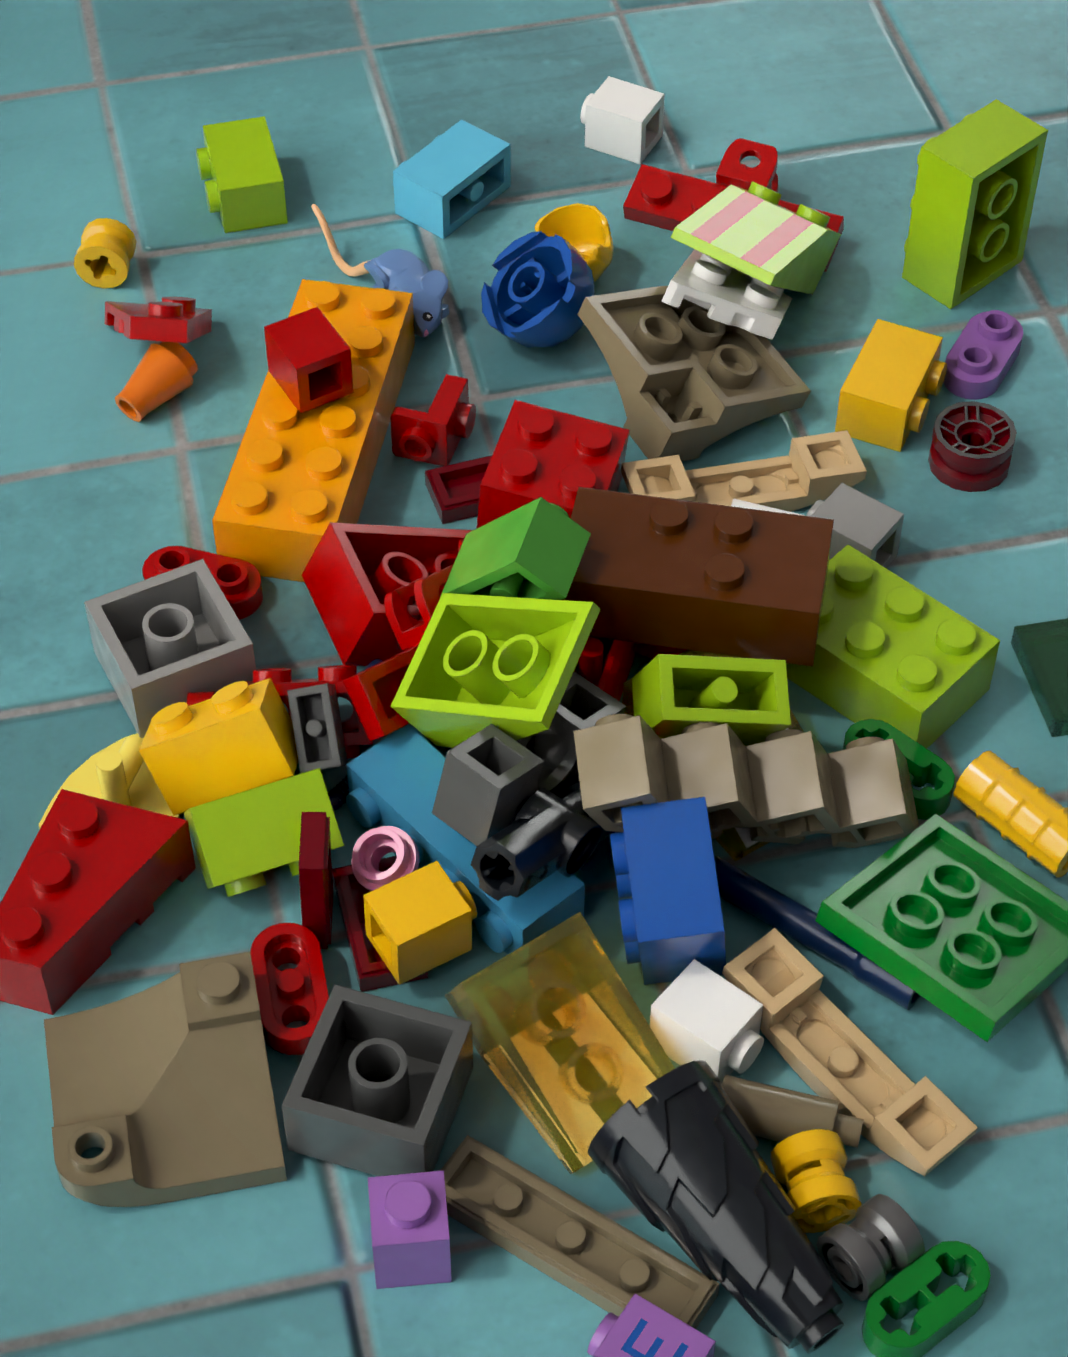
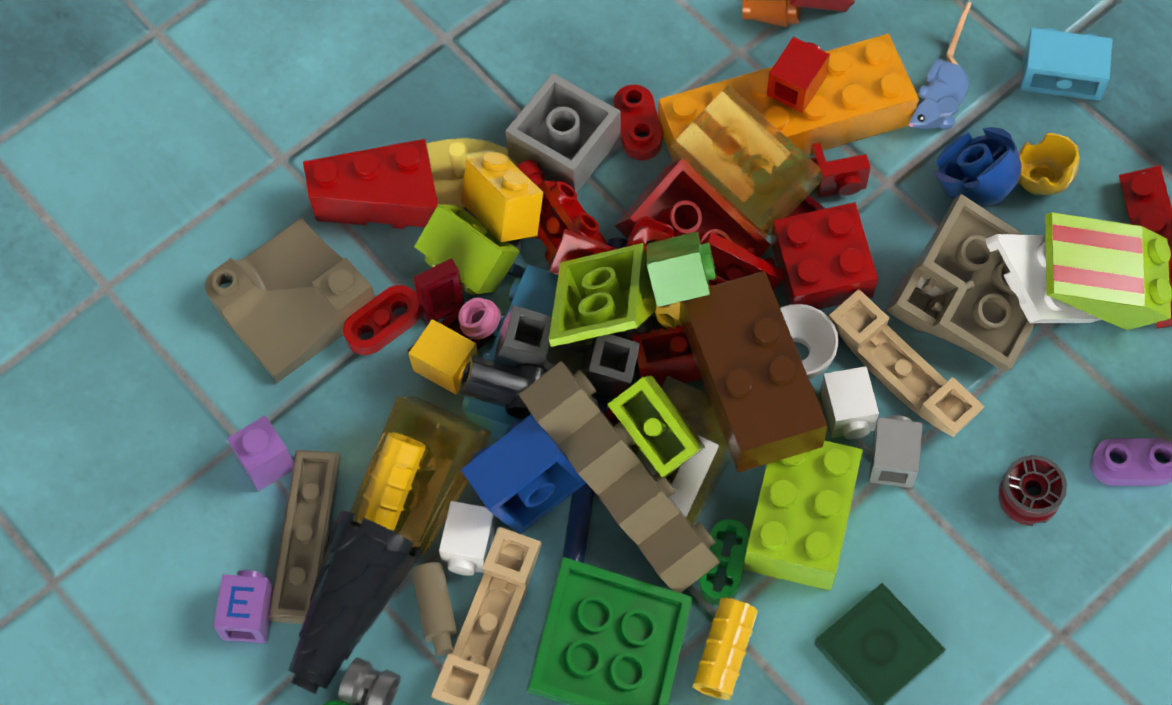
camera: 65 degrees right, 15 degrees up
(317, 727) = (539, 236): dark grey piece -> none
(378, 1085) = (332, 393): dark grey brick -> none
(386, 463) = (747, 160): none -> clear yellow slope
(579, 1054) = (391, 480): none -> yellow axle
(815, 1179) = (396, 640): yellow wheel -> none
(891, 385) = (1053, 414): yellow brick -> none

